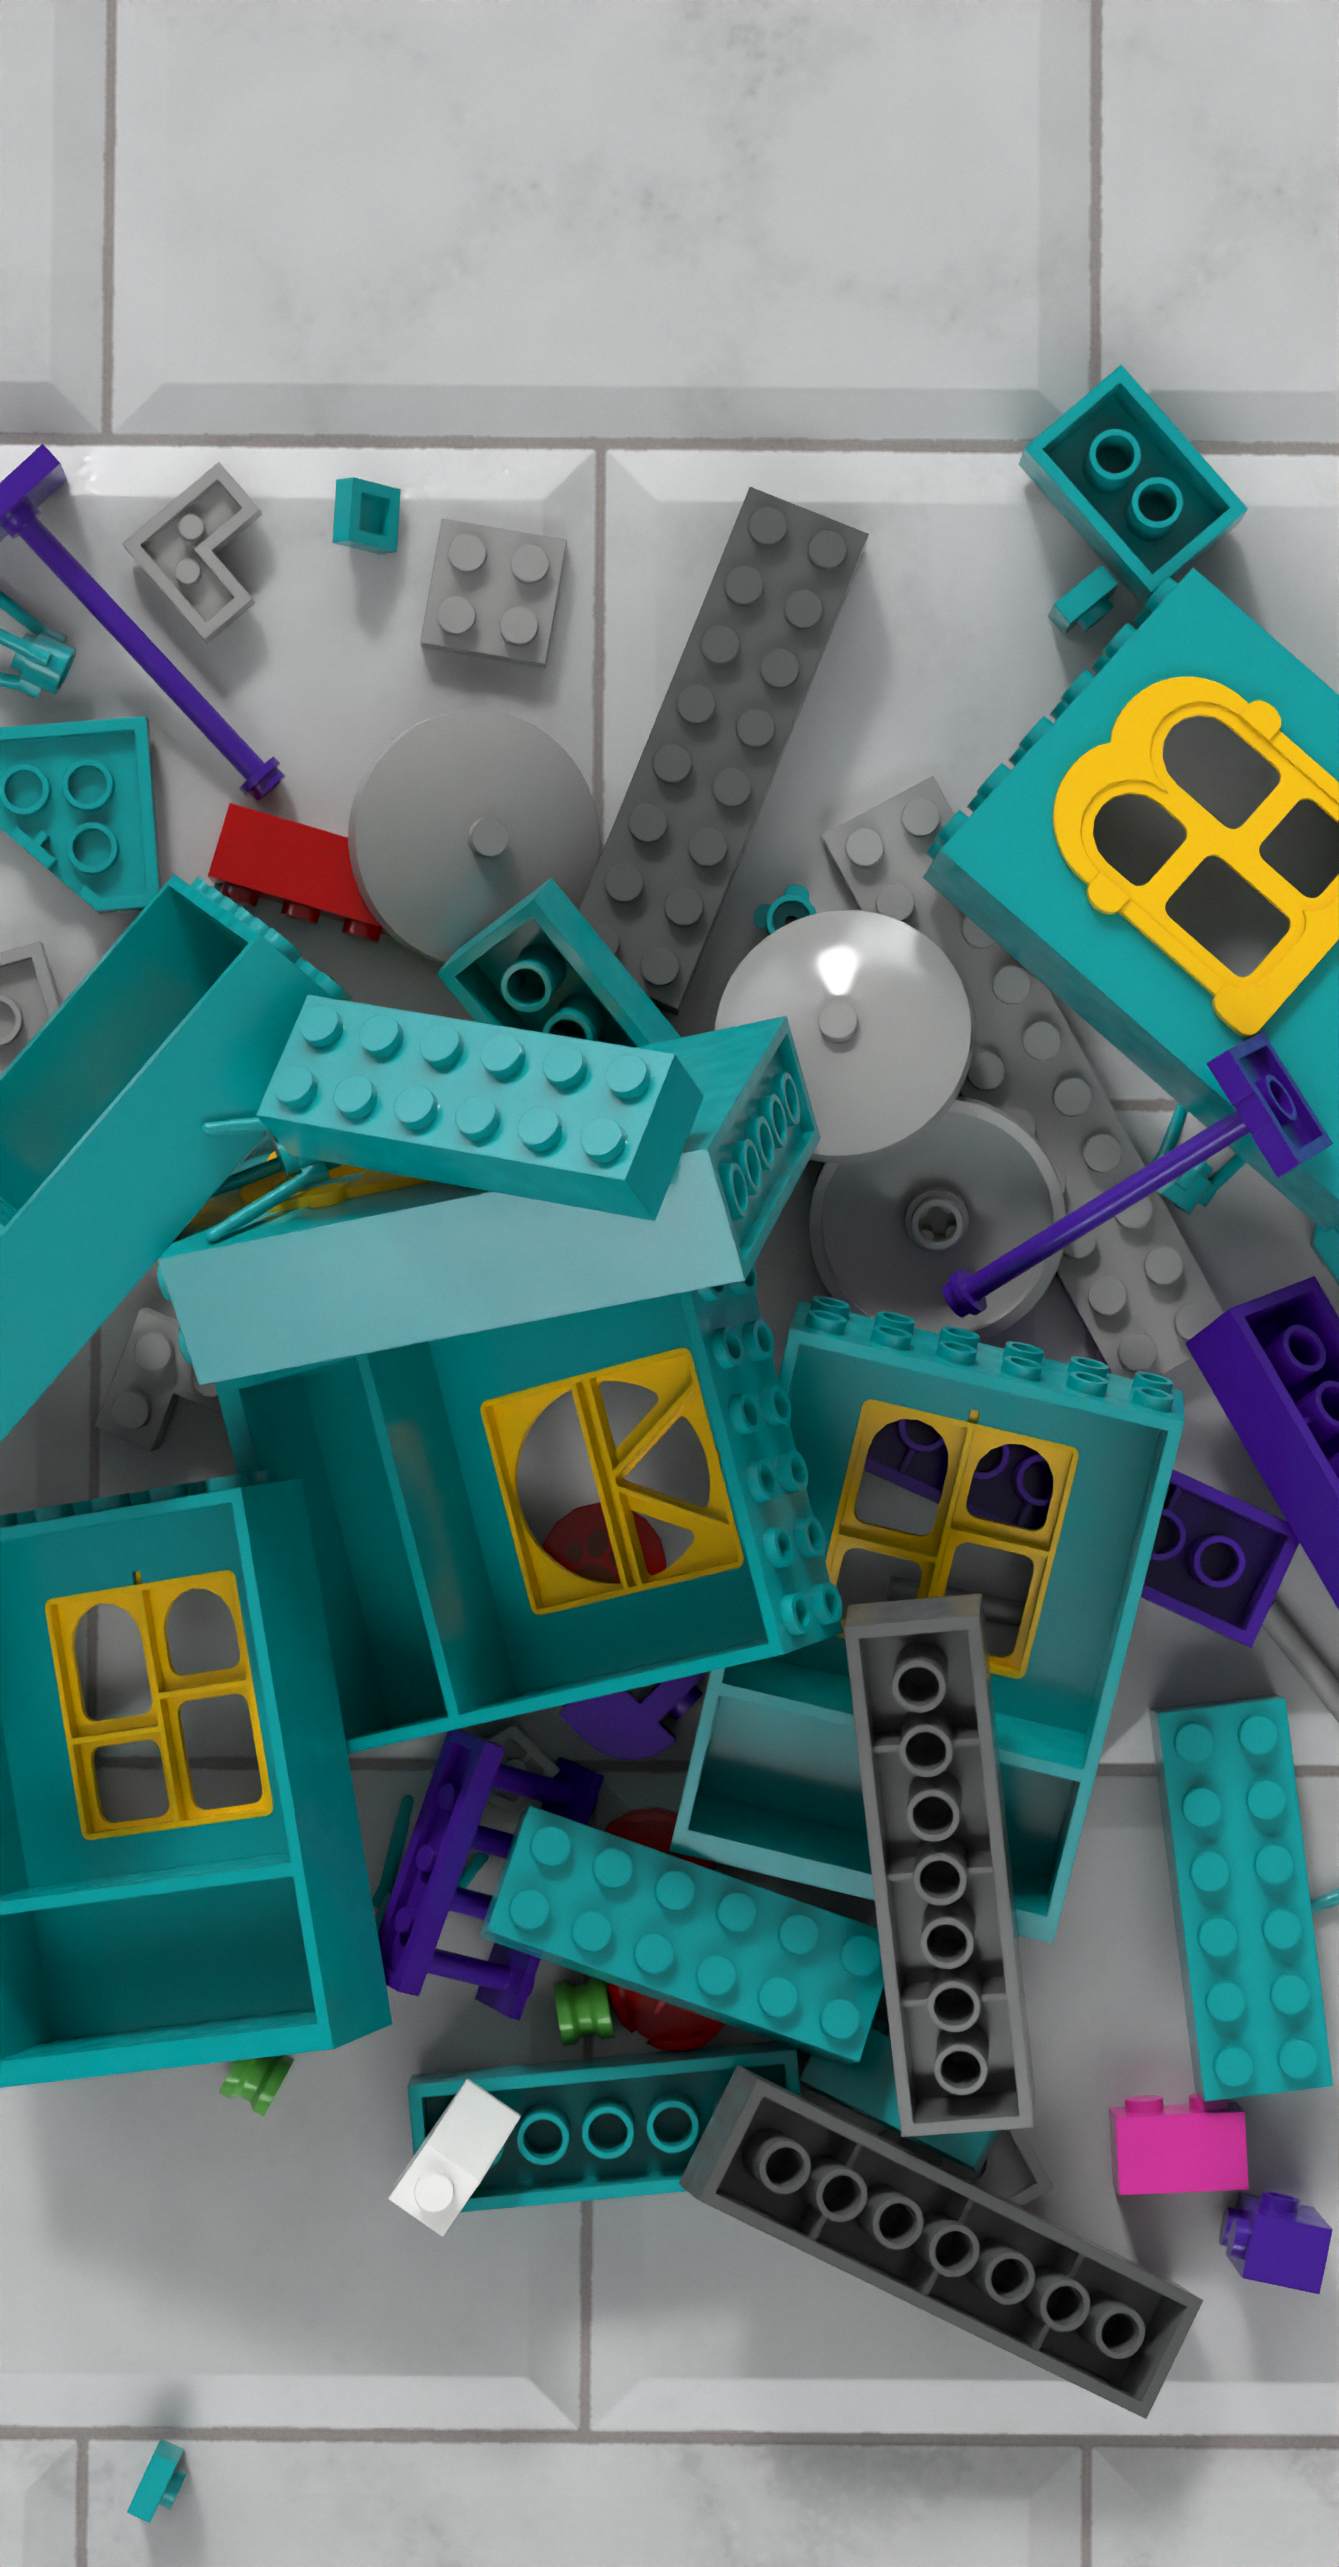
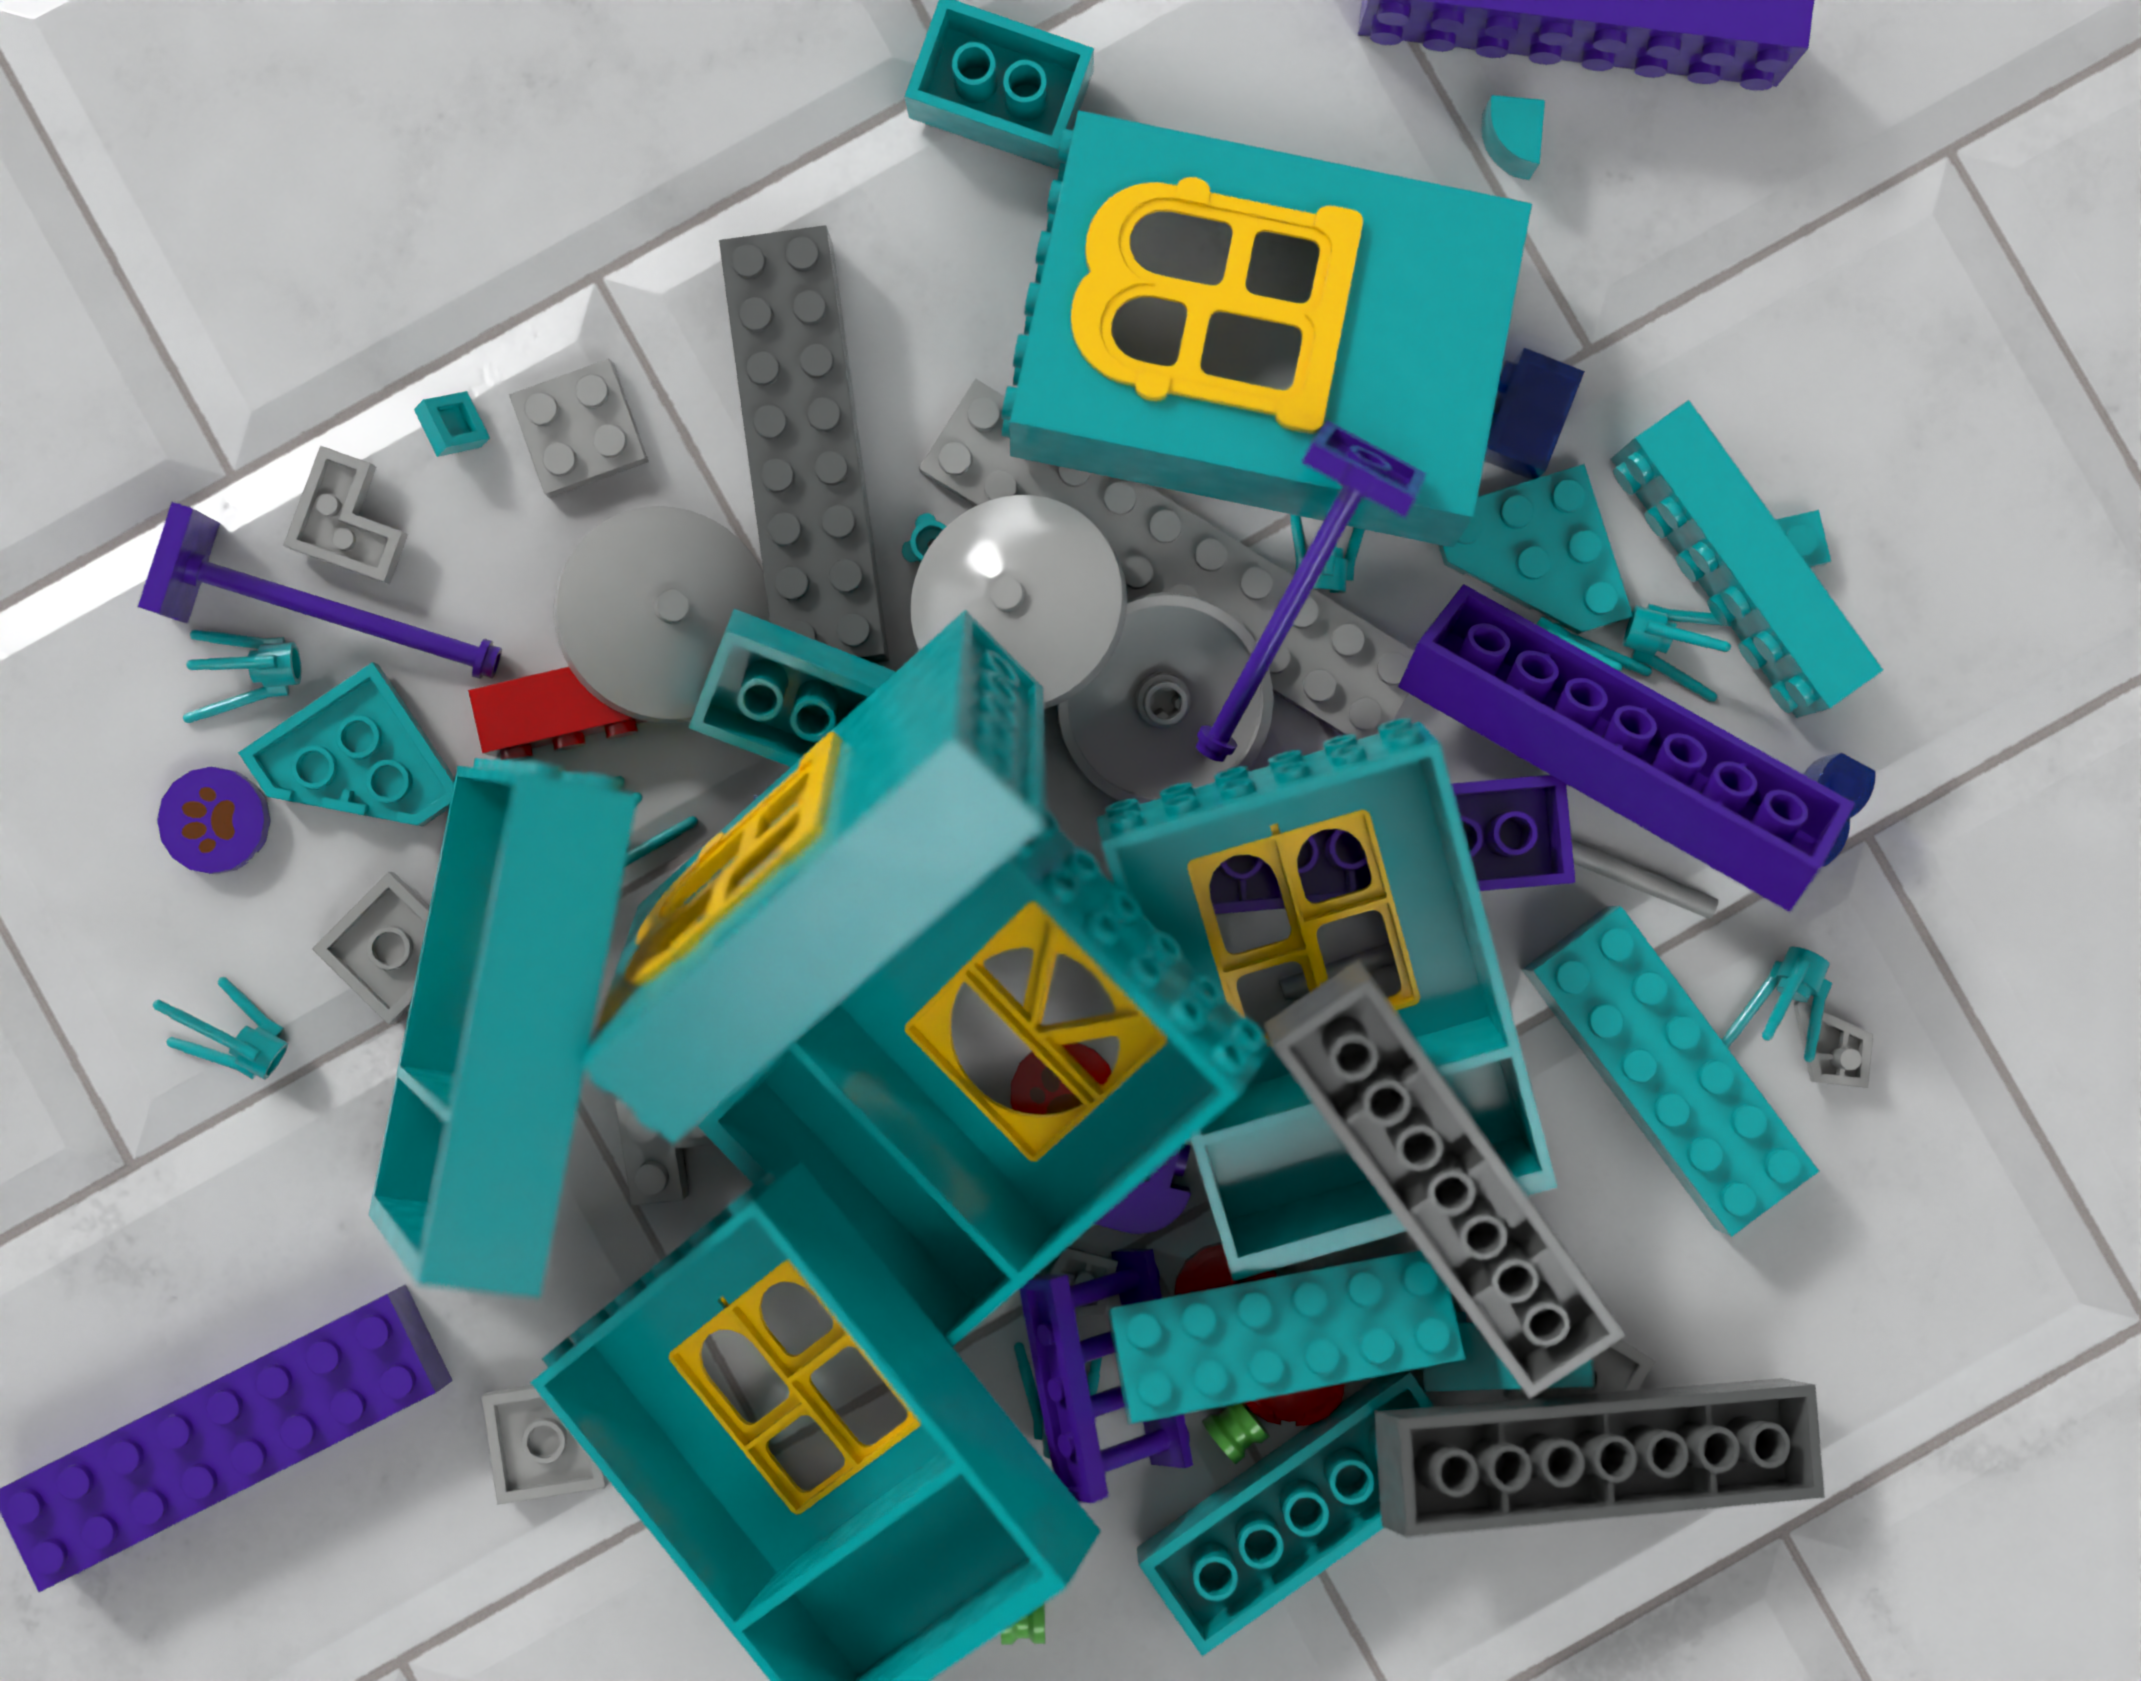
camera: 25 degrees left, 0 degrees up
(308, 1171) = (652, 921): teal plant -> none
(454, 2157) = (1203, 1602): white slope -> none
(482, 1106) = (762, 804): teal brick -> none
(1086, 602) = (1014, 188): teal plate -> none
(1178, 2146) = (1728, 1279): dark pink brick -> none
(1276, 2240) = (1843, 1309): dark purple brick -> none

